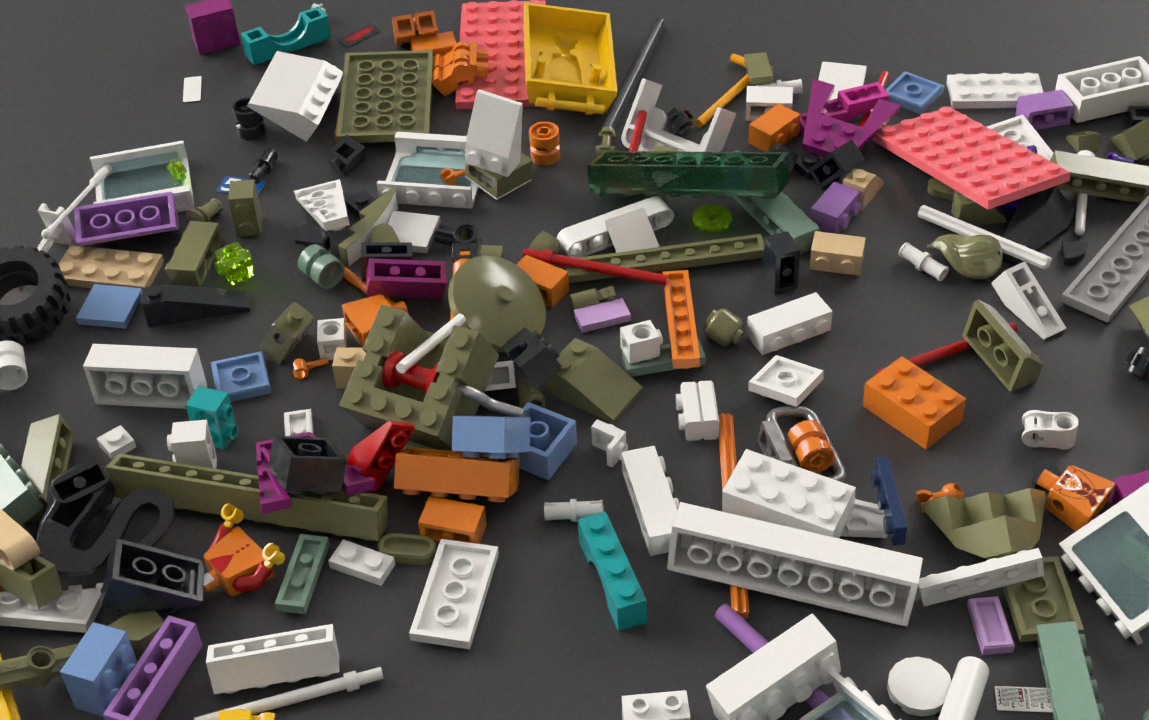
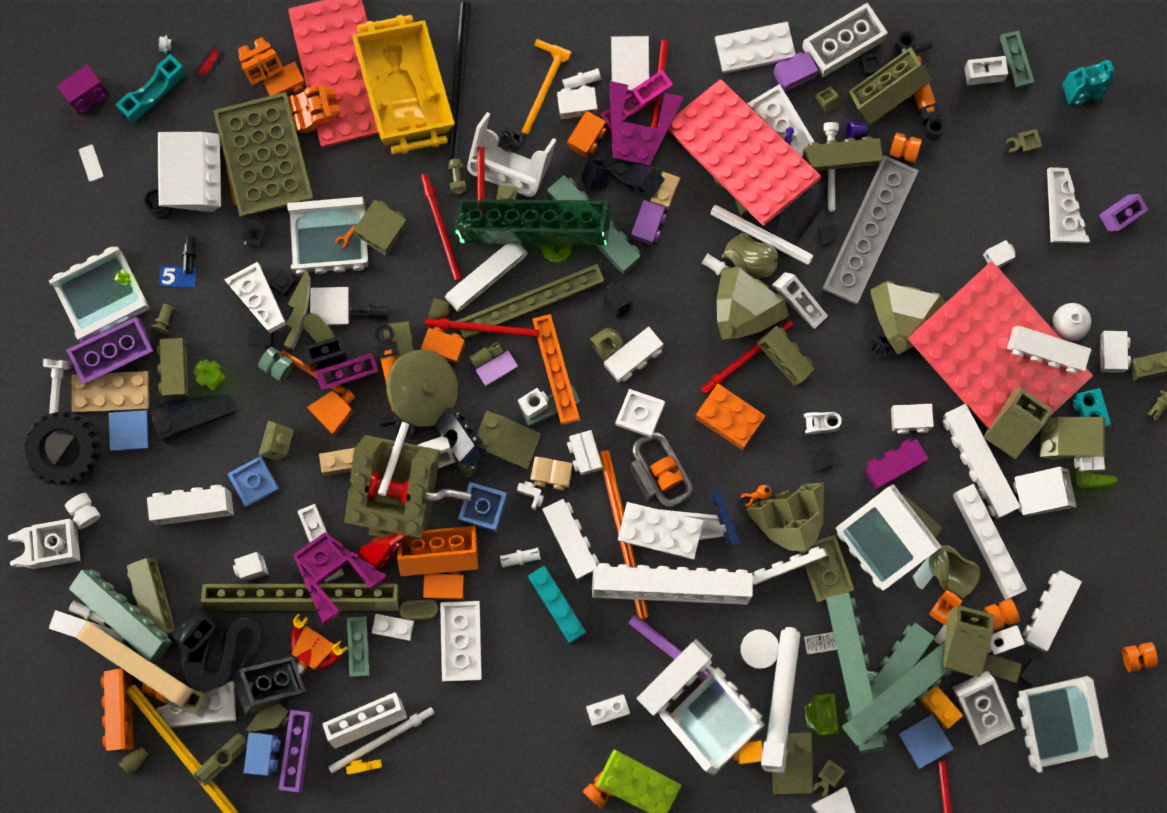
camera: 10 degrees left, 35 degrees up
(104, 171) = (64, 307): white piece -> none
(116, 442) = (188, 560): white plate -> none
(218, 411) = (253, 535): teal brick -> none
(245, 208) = (197, 317): olive brick -> none
(301, 367) = (294, 464): orange hand -> none
(307, 464) = (340, 580): black brick -> none
(330, 335) = (312, 442): white brick -> none
(491, 436) = (456, 529): medium blue brick -> none
(494, 134) = (375, 222): white slope -> none
(544, 143) = (409, 190): orange wheel -> none
(569, 156) = (430, 193): none -> red bar
(631, 231) = (501, 284): white sticker -> none
(647, 423) = (551, 472): none -> tan brick
(724, 327) = (587, 368): olive head -> none
(753, 301) = (606, 343): none -> olive helmet
(758, 68) = (561, 63): olive tile -> none
(837, 253) = (656, 274): tan brick -> none
(914, 92) = (689, 61): medium blue tile -> none
(948, 286) = (746, 304): none -> olive brick
(990, 625) = (797, 593): lavender tile -> none
(1075, 495) = (843, 481): orange torso -> none

